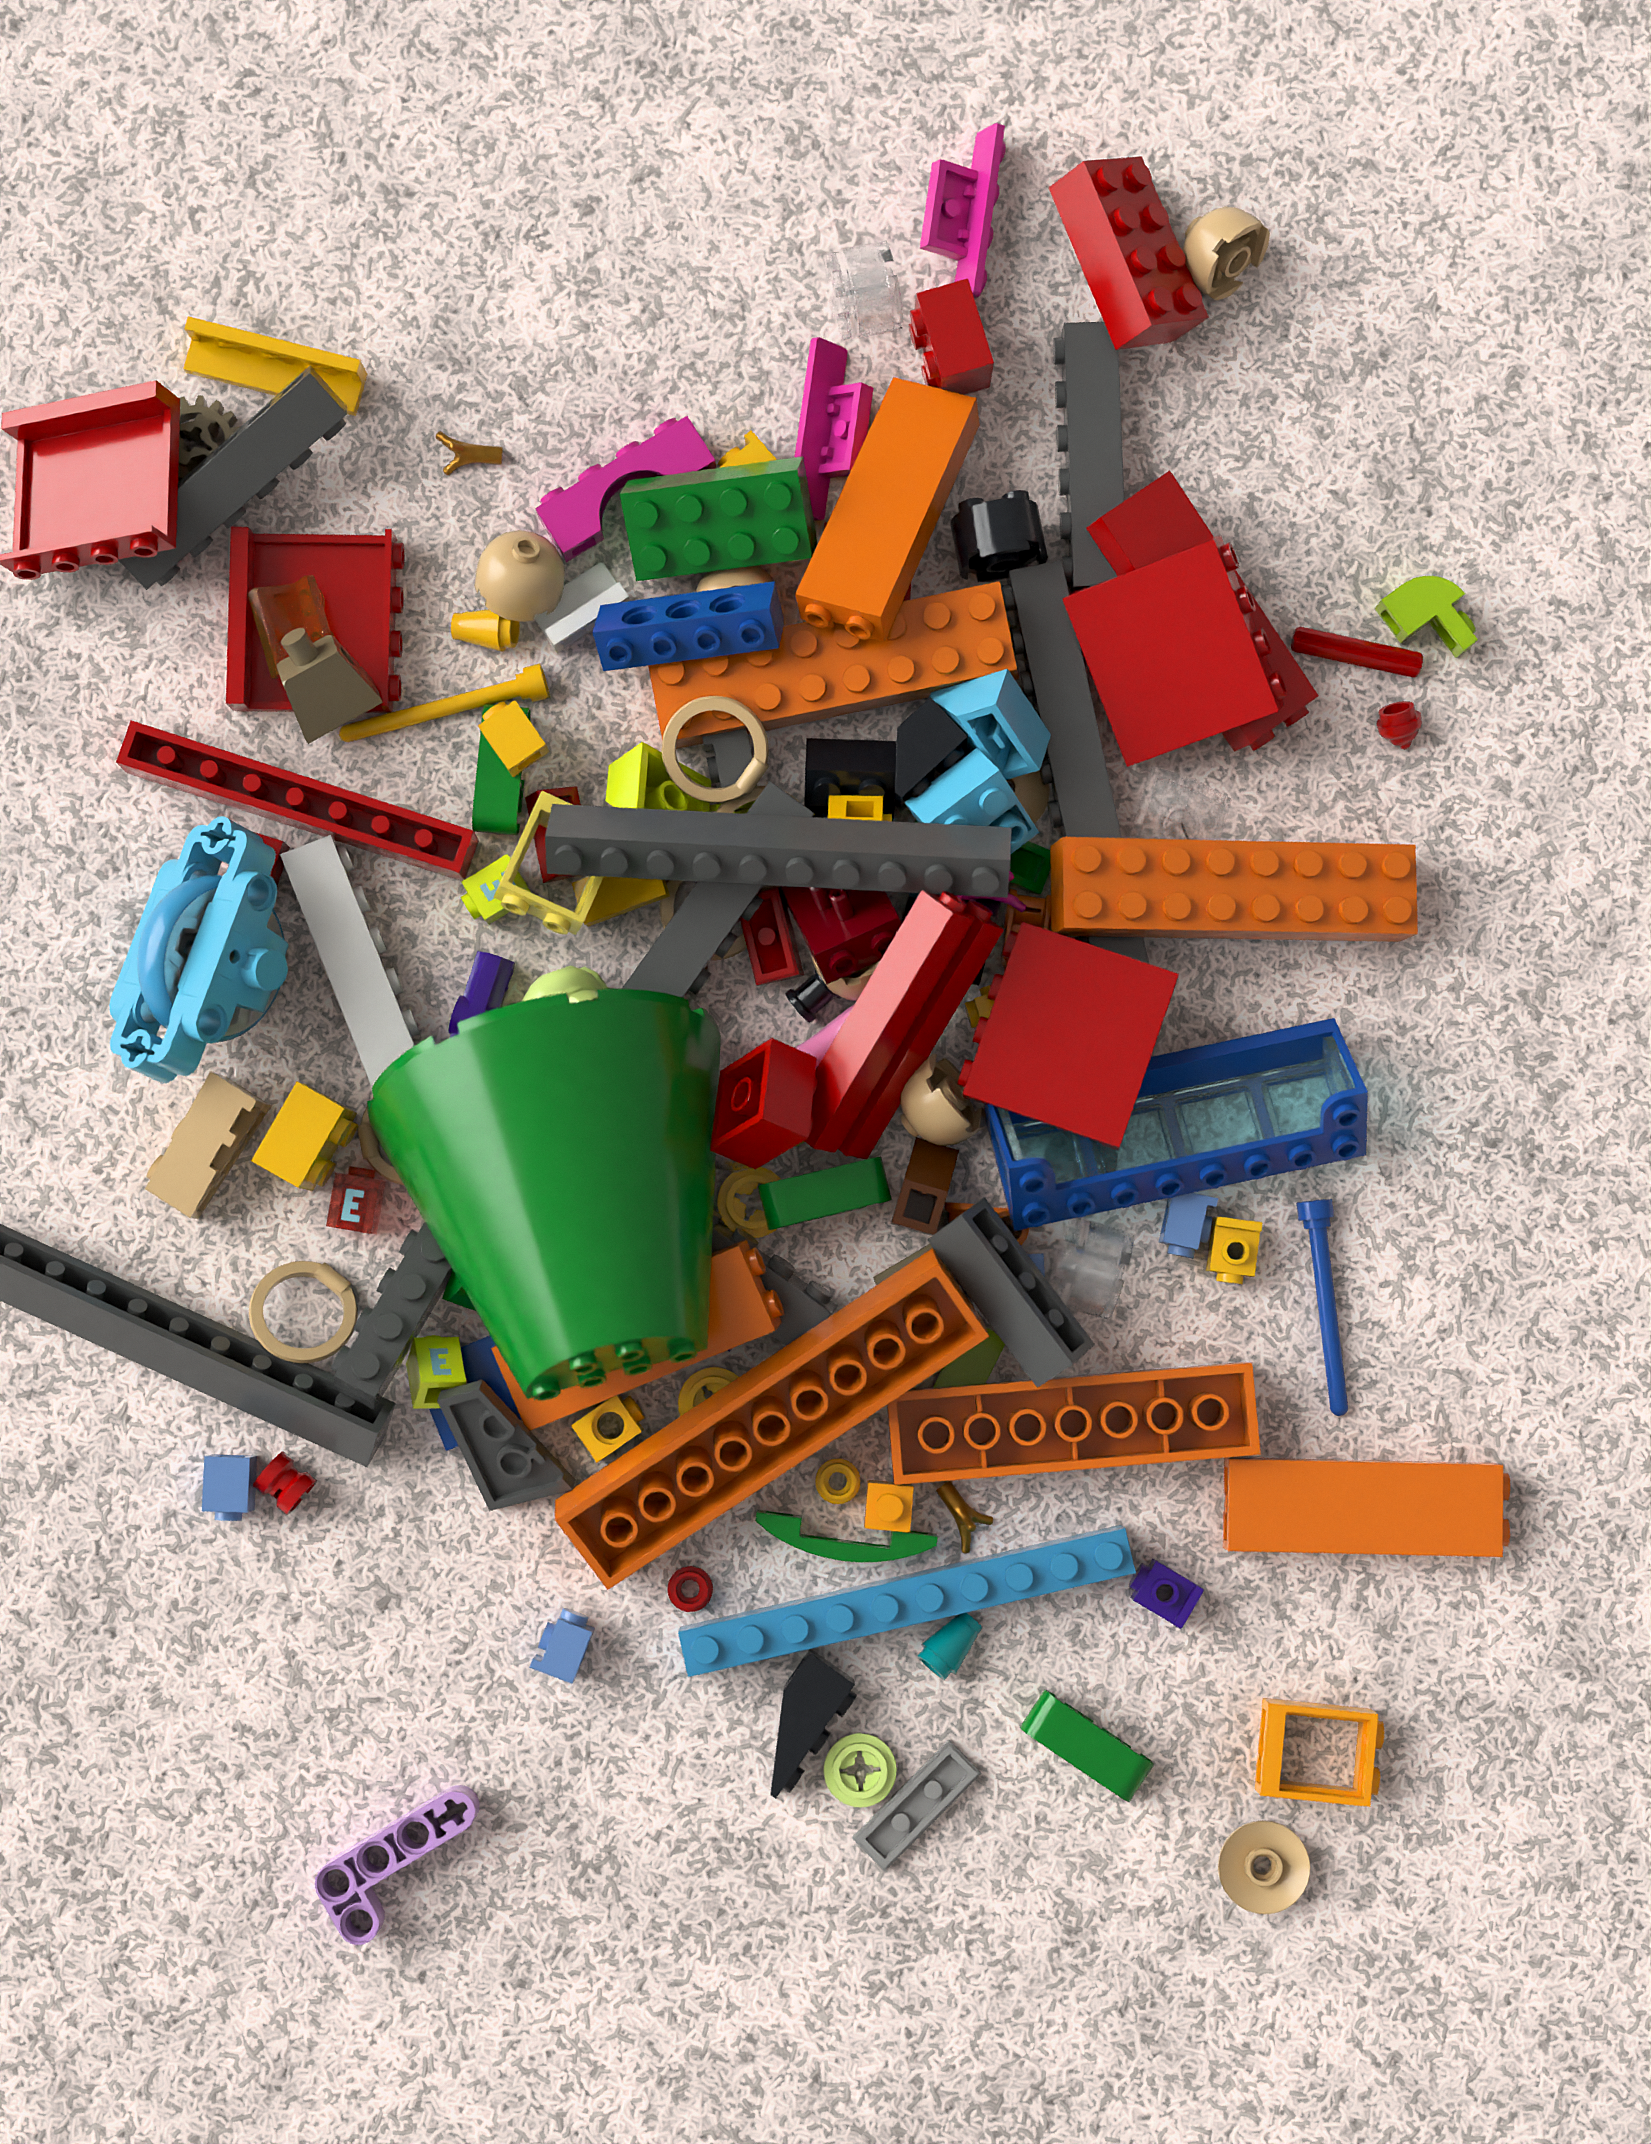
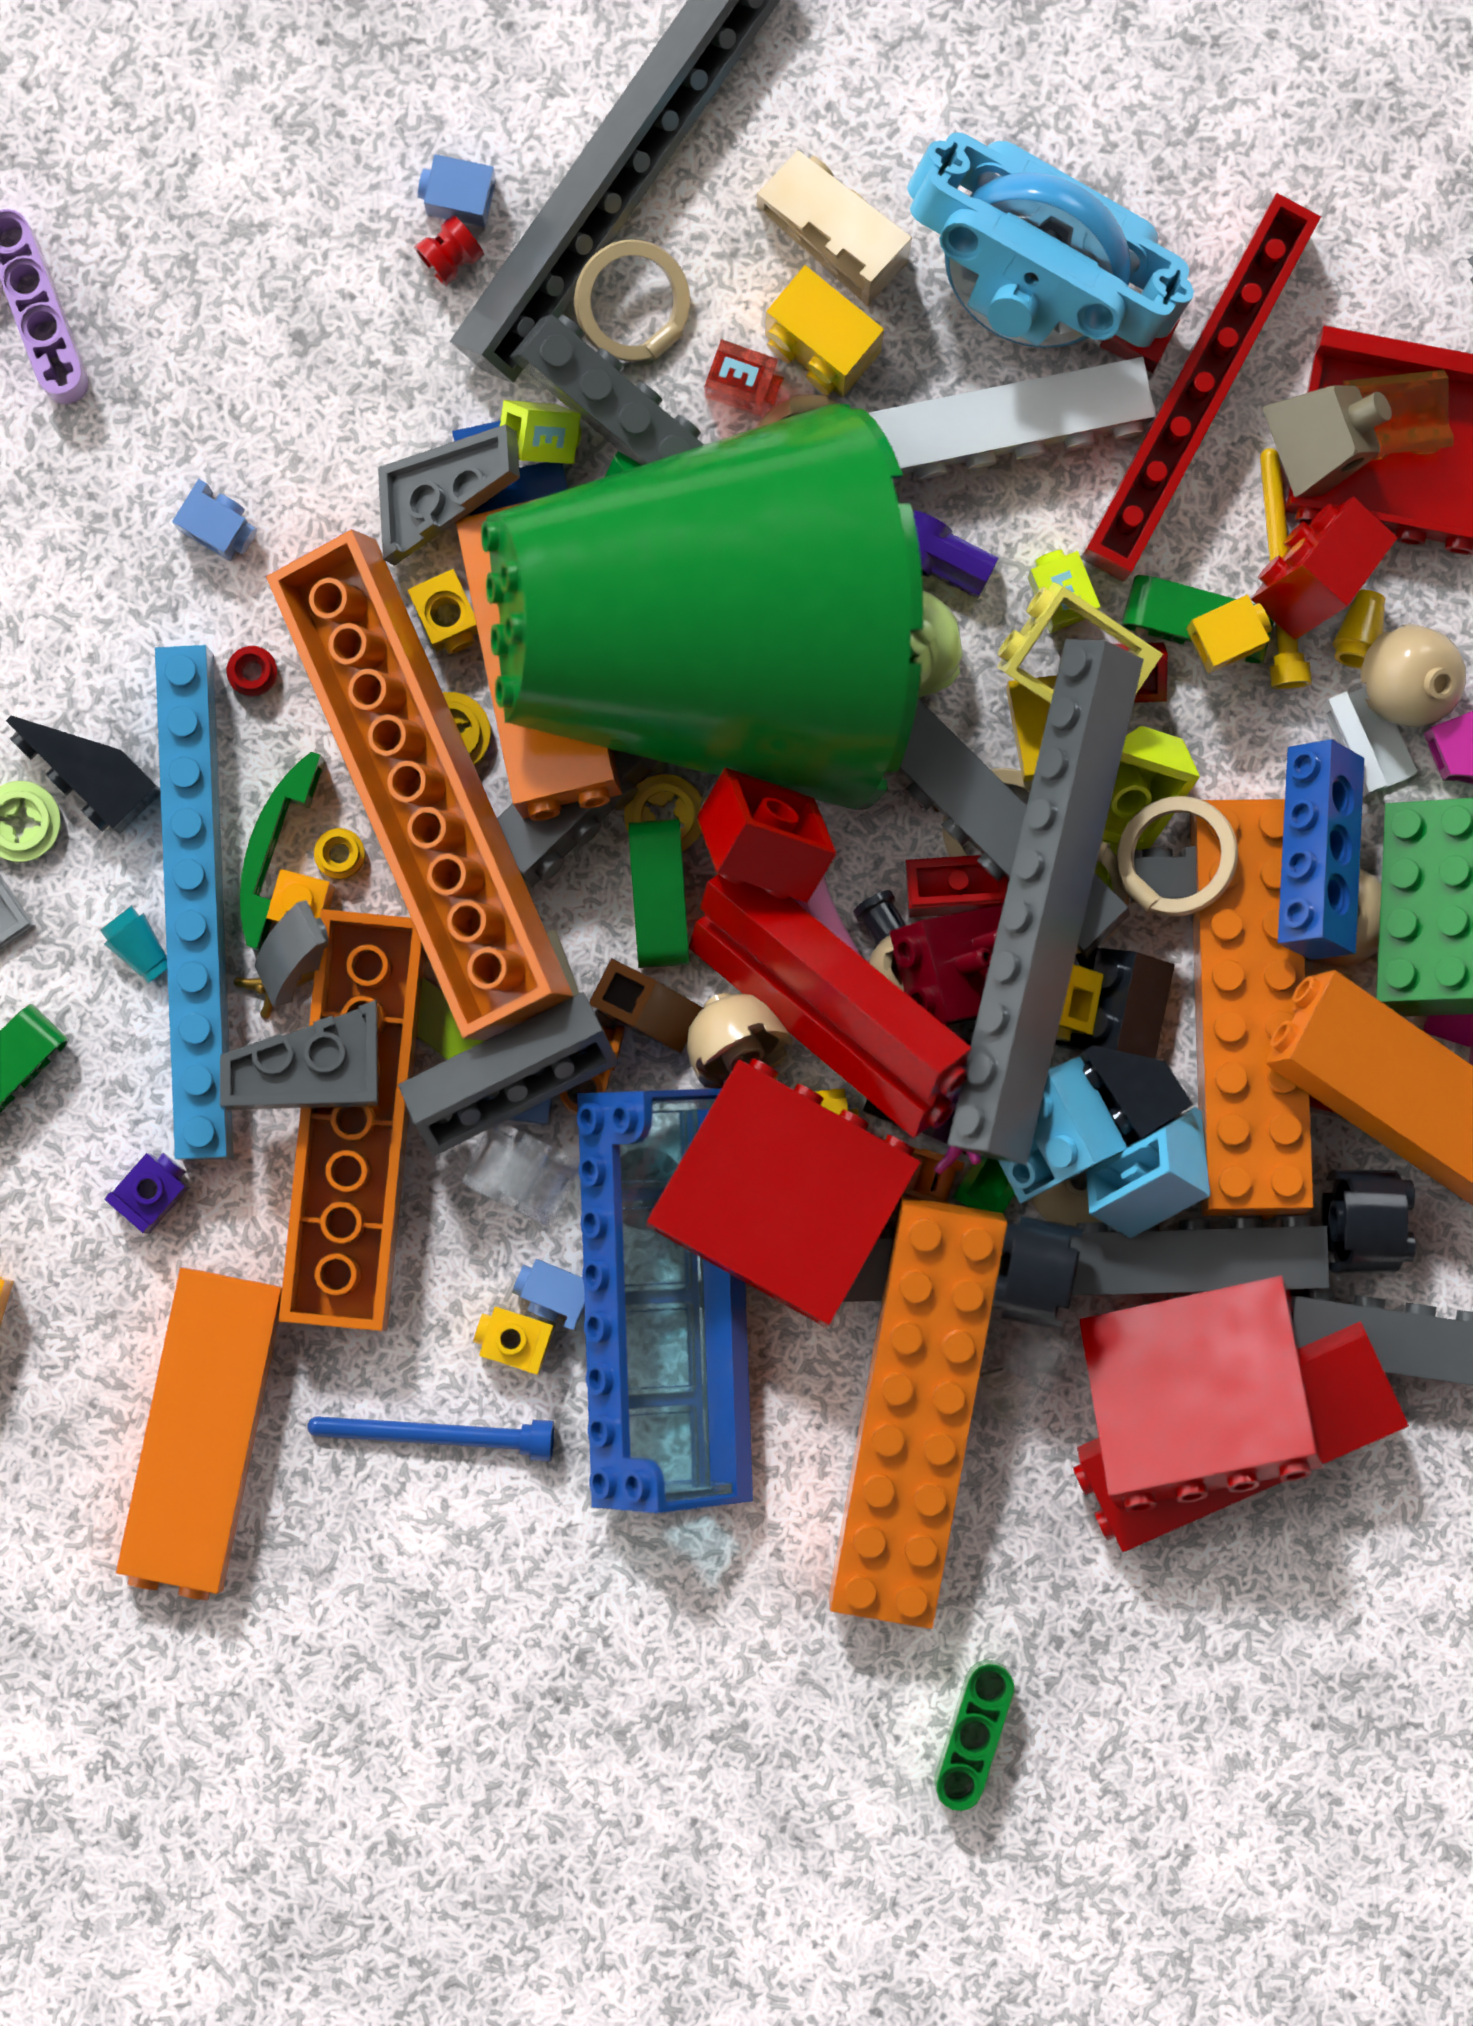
camera: 100 degrees right, 0 degrees up
(441, 666) = (1322, 567): none -> red brick
(937, 1504) = (289, 951): none -> dark grey slope
(1037, 1467) = (309, 1068): none -> dark grey wing
(1098, 803) = (1039, 1272): none -> black brick
(1357, 652) = (1168, 1610): red axle -> none
(1399, 723) = (1077, 1642): red plate -> none
(1430, 602) = (1211, 1696): lime brick -> none
(1514, 789) = (975, 1760): none -> green beam

